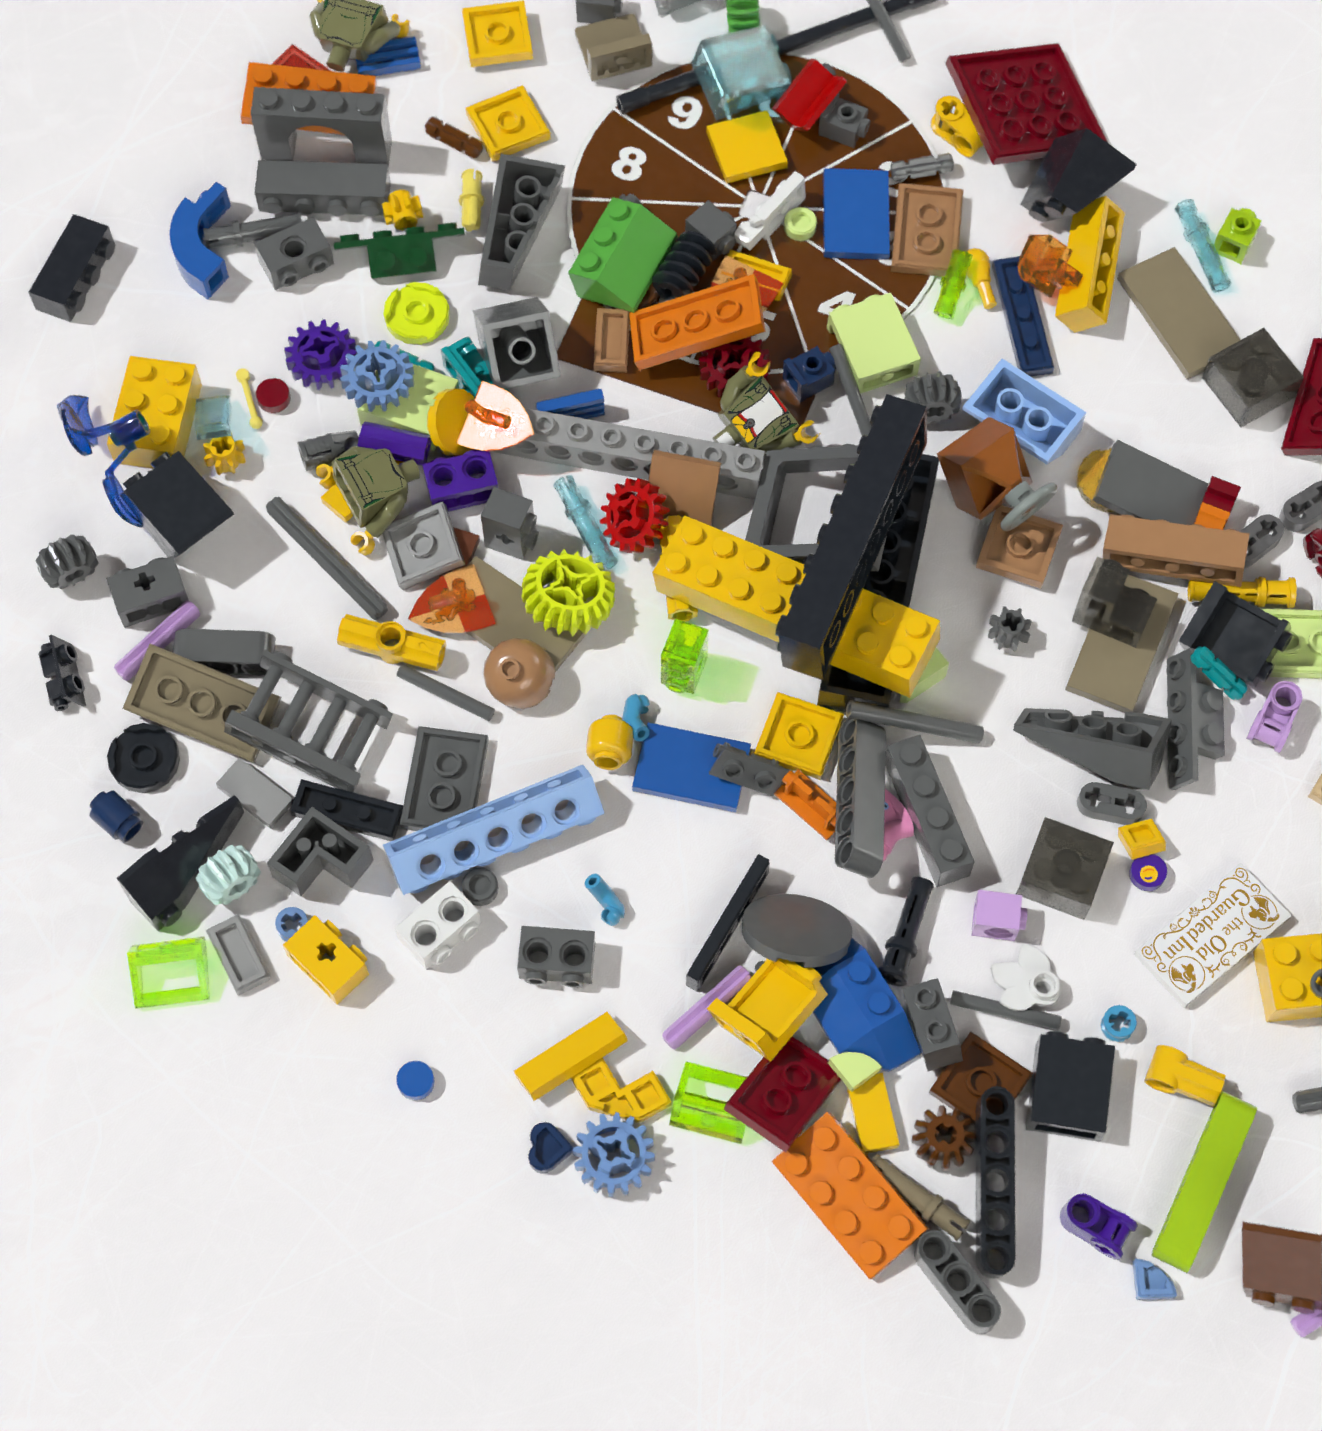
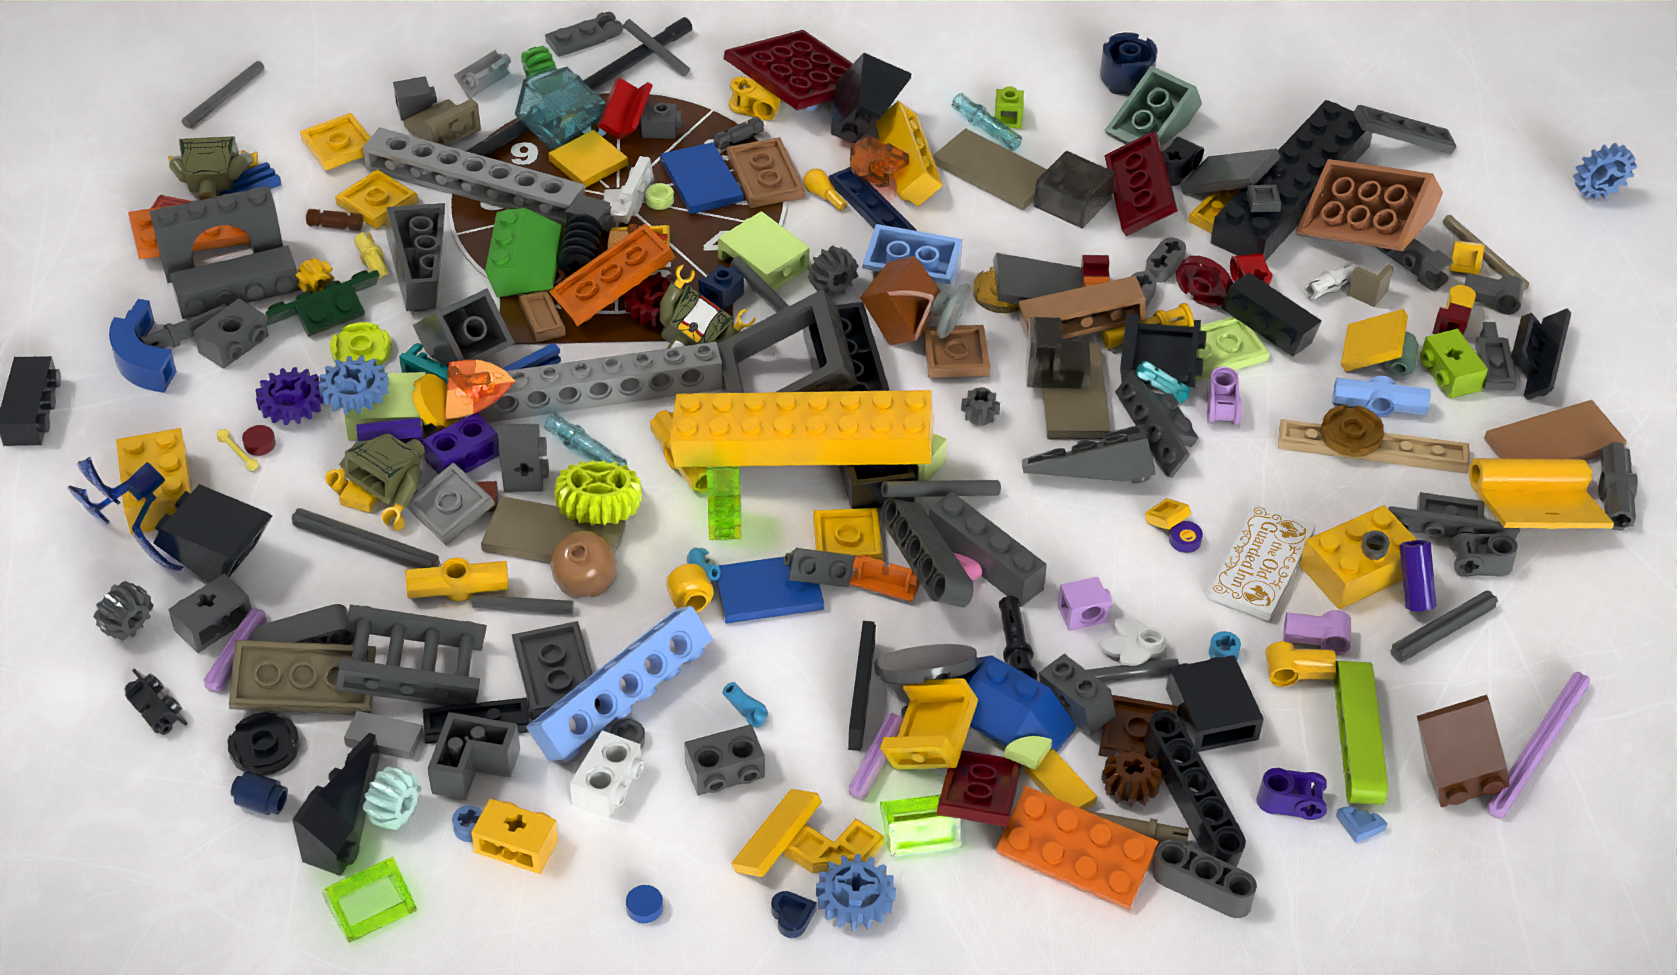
camera: 25 degrees left, 20 degrees down
(213, 417) = (213, 465): clear light blue tile -> none
(224, 454) = (236, 486): yellow gear -> none
(238, 954) = (428, 865): light grey tile -> none
(326, 448) = (330, 454): dark grey hinge -> none
(454, 603) = (499, 535): clear orange shield -> none
(599, 117) = (470, 174): none -> light grey brick
(634, 512) = (627, 421): red gear -> none
(687, 483) = (654, 387): medium nougat tile -> none
(852, 537) = (831, 348): black brick -> none
(953, 284) = (806, 196): clear neon green pin -> none
(1065, 868) = (1120, 550): clear smoke brick -> none
(1111, 803) = (1128, 499): dark grey beam -> none
(1235, 1050) = (1329, 631): none -> lavender piece

